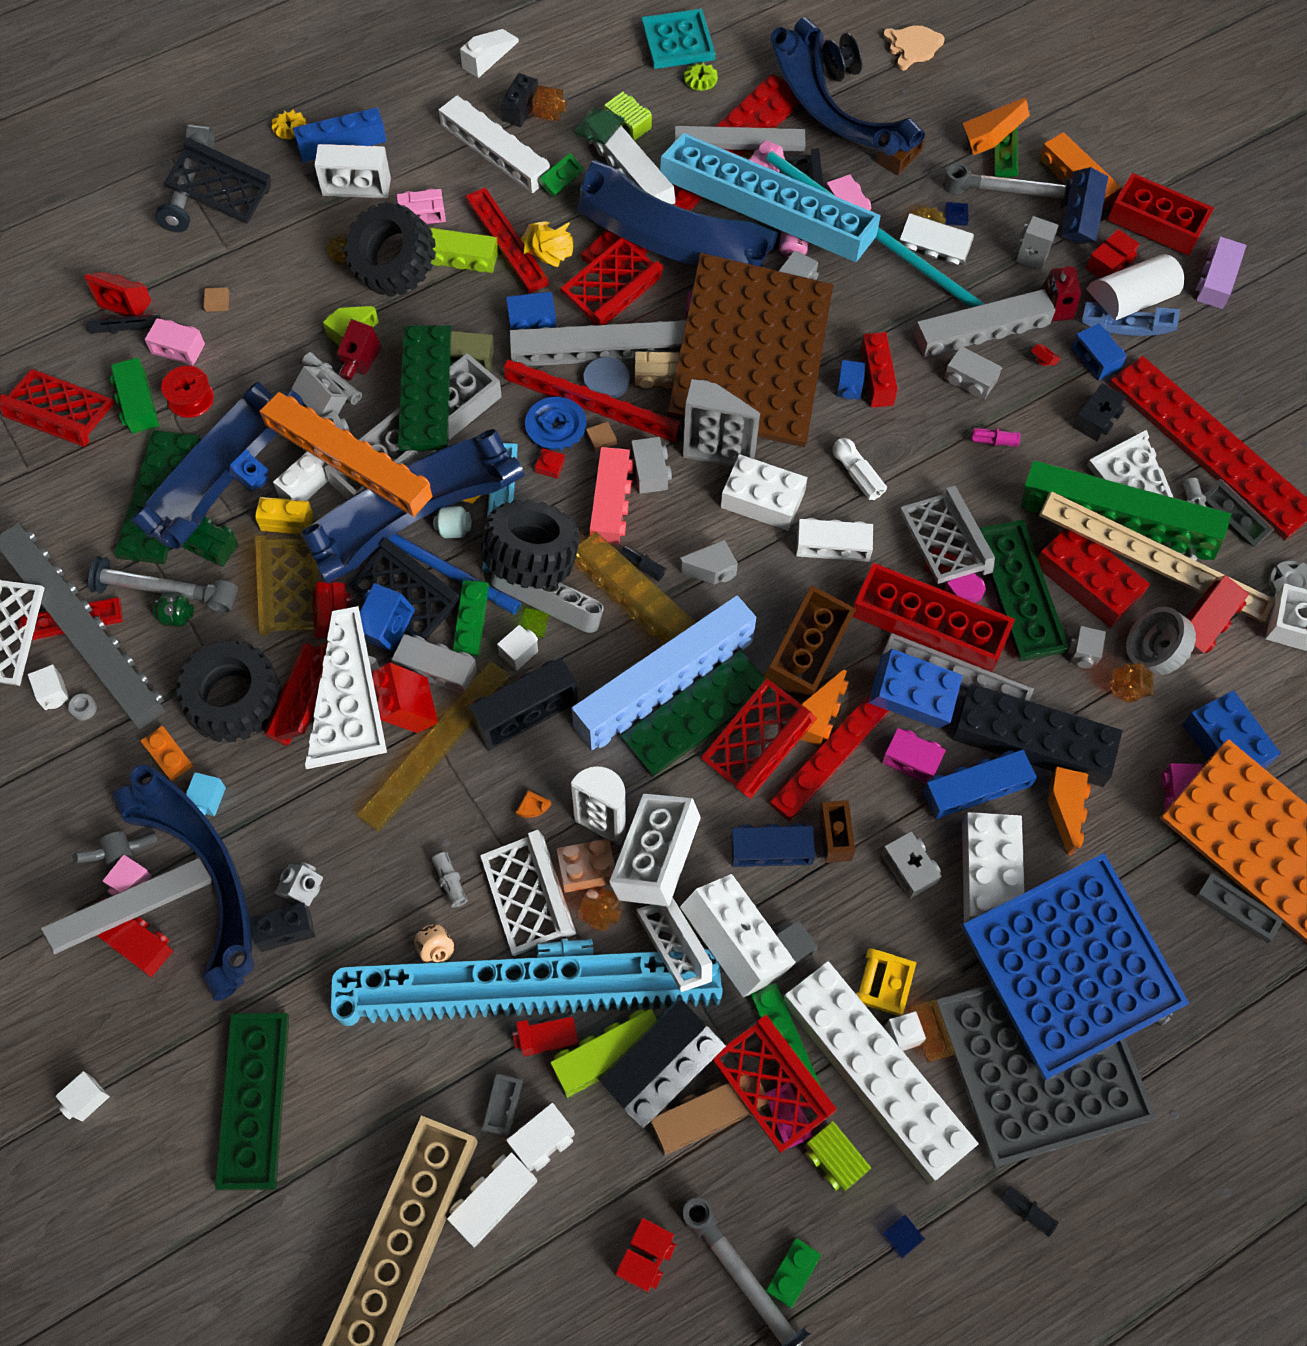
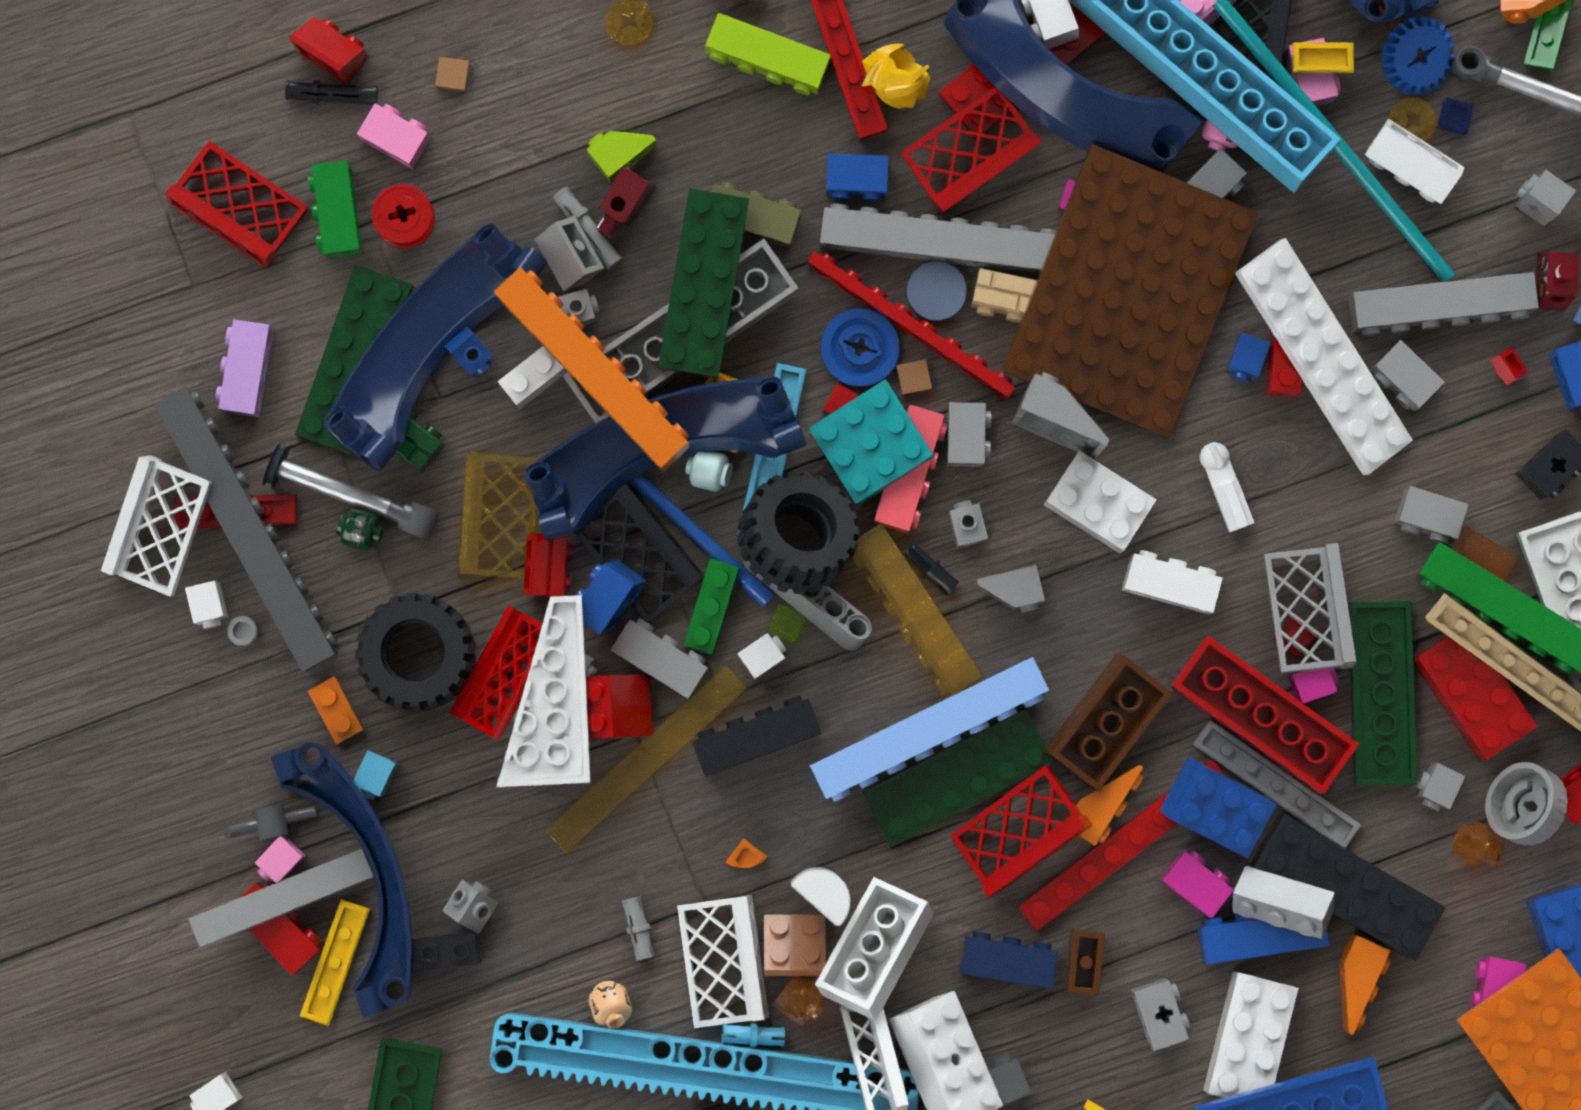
camera: 10 degrees right, 20 degrees up
(70, 513) = (244, 368): none -> lavender brick
(184, 960) = (335, 962): none -> yellow tile
(283, 515) = (505, 423): yellow brick -> none
(369, 234) = (651, 62): black tyre -> none
(576, 476) = (871, 442): none -> teal plate
(665, 526) = (967, 524): none -> light grey brick
(853, 183) = (1323, 57): none -> yellow tile
(908, 362) = (1324, 356): none -> white plate
(926, 191) = (1400, 50): none -> blue gear
(989, 747) = (1283, 902): none -> brick
(995, 437) = (1411, 474): dark pink axle -> none
(1016, 457) = (1430, 514): none -> light grey brick

